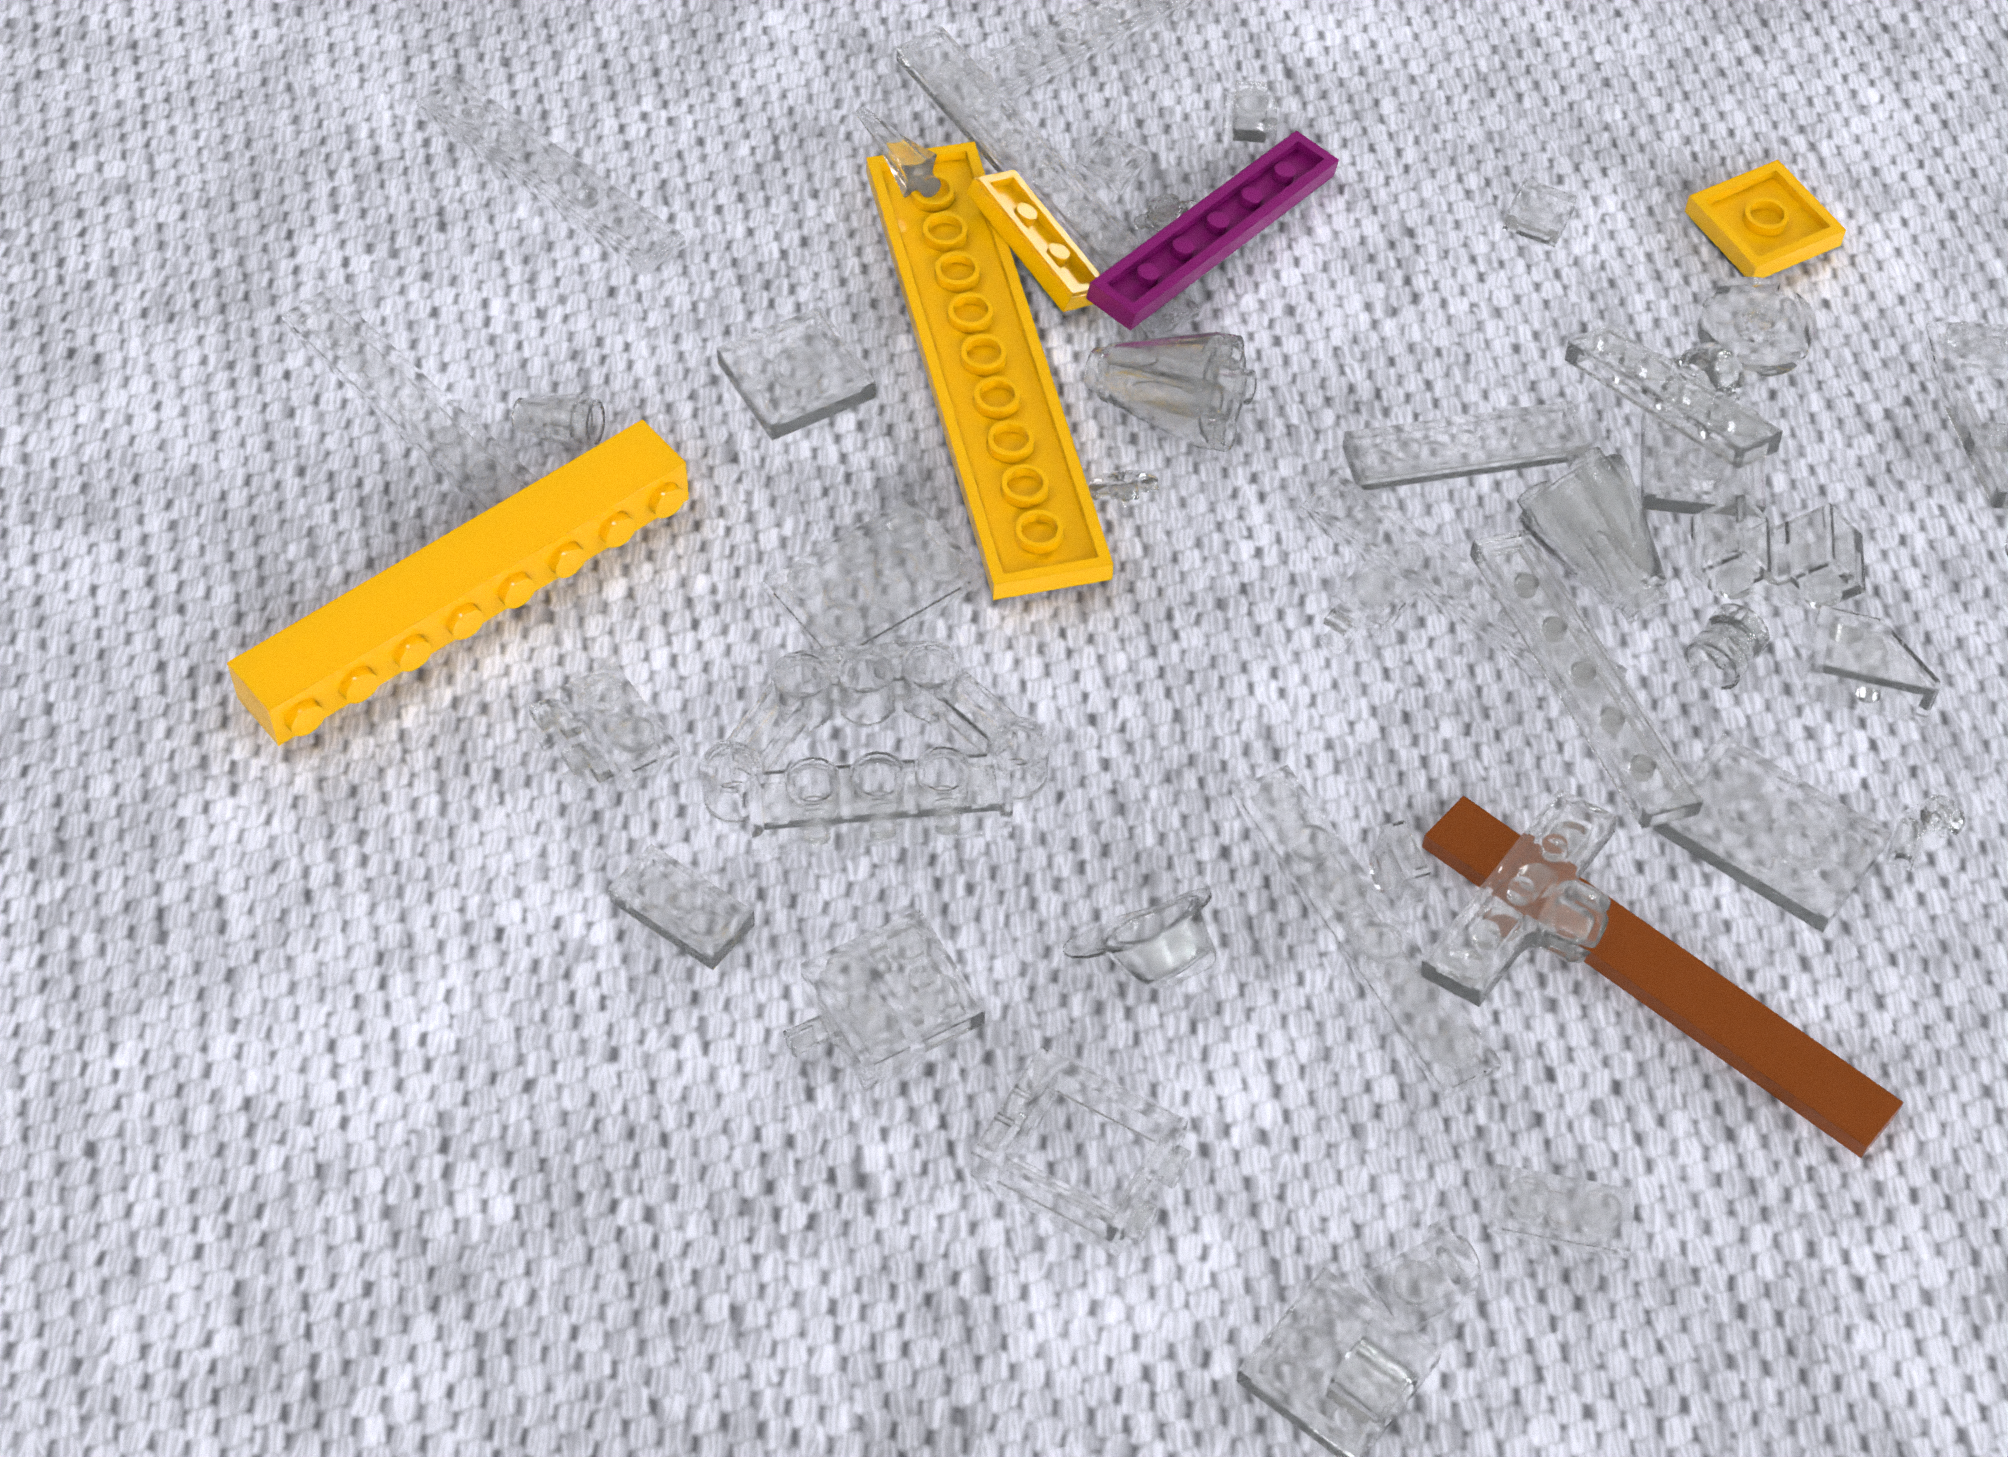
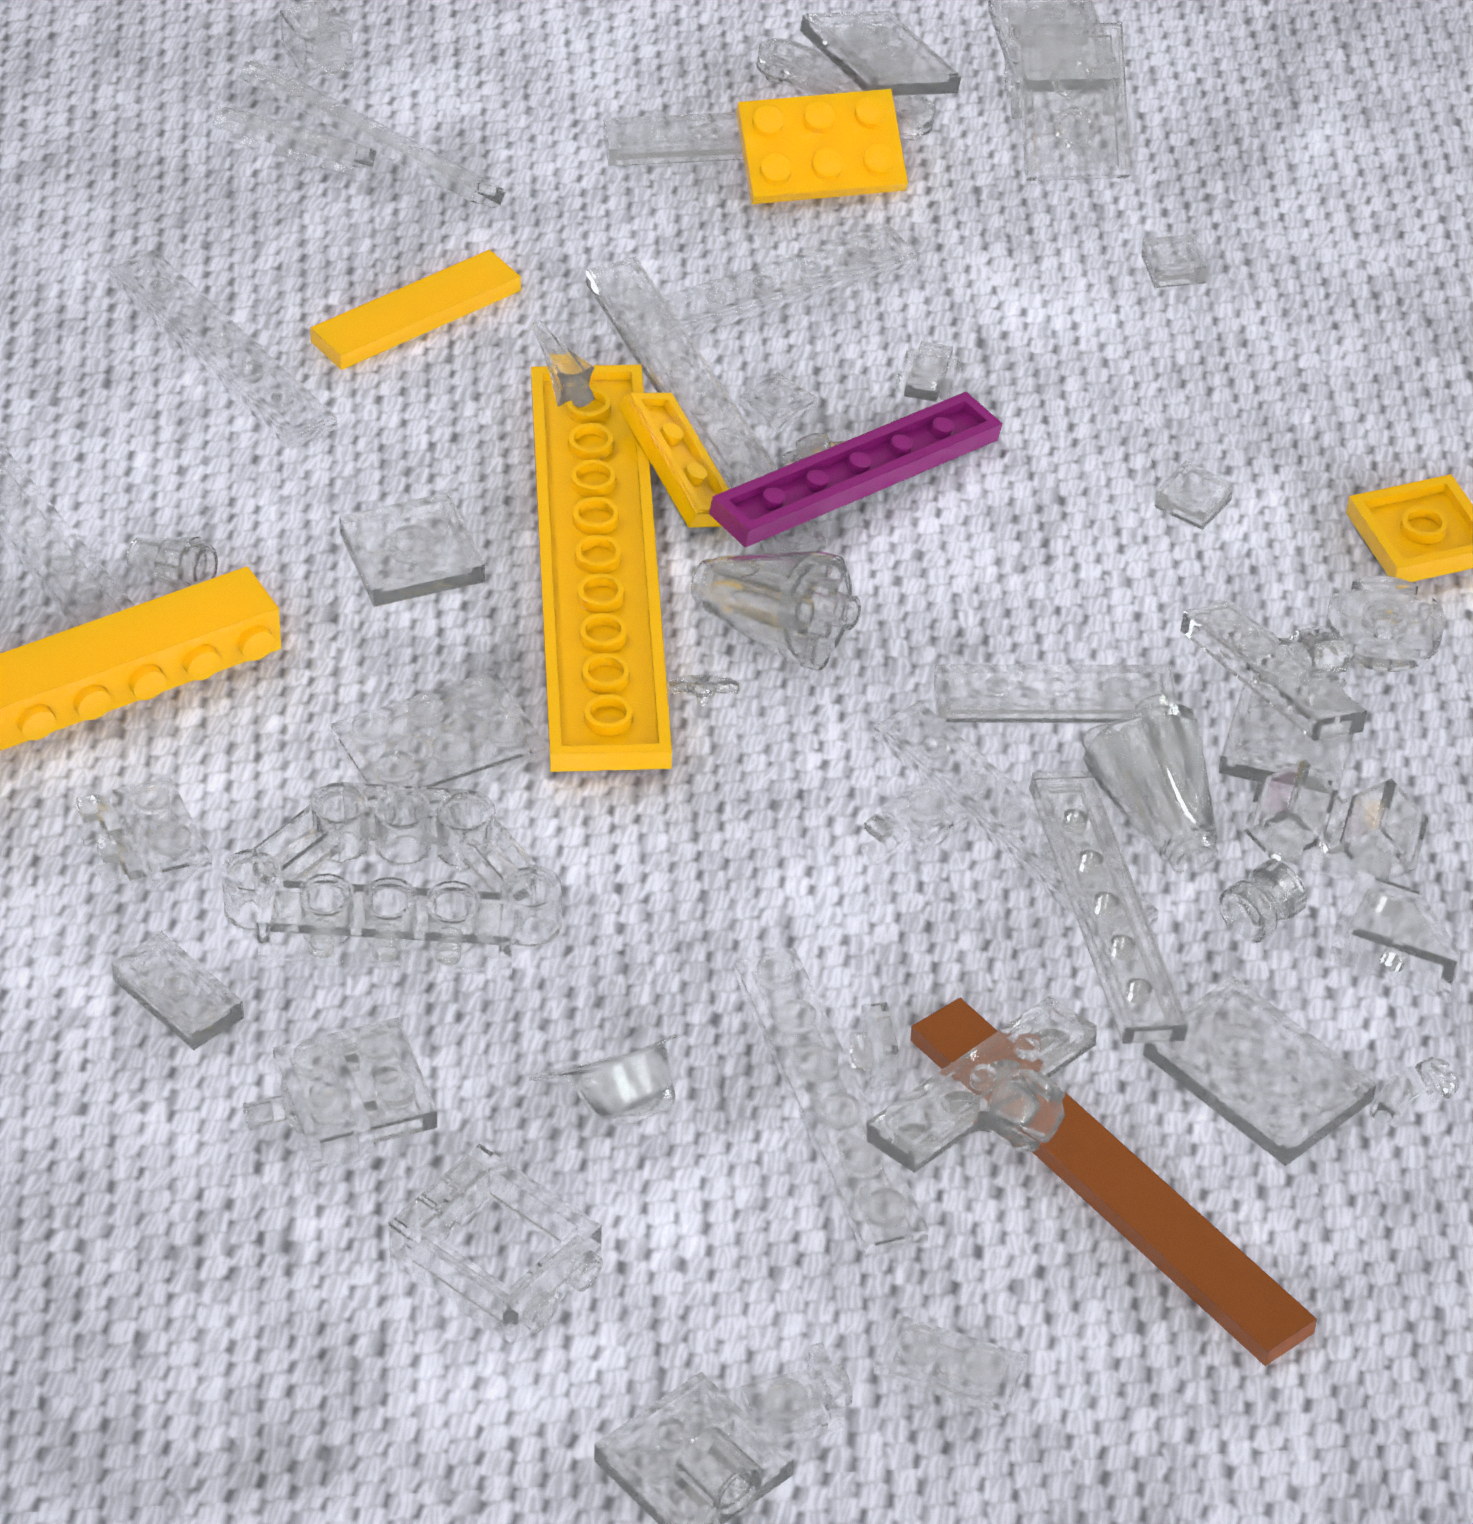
camera: 10 degrees right, 10 degrees down
(731, 107) = (415, 309): none -> yellow tile

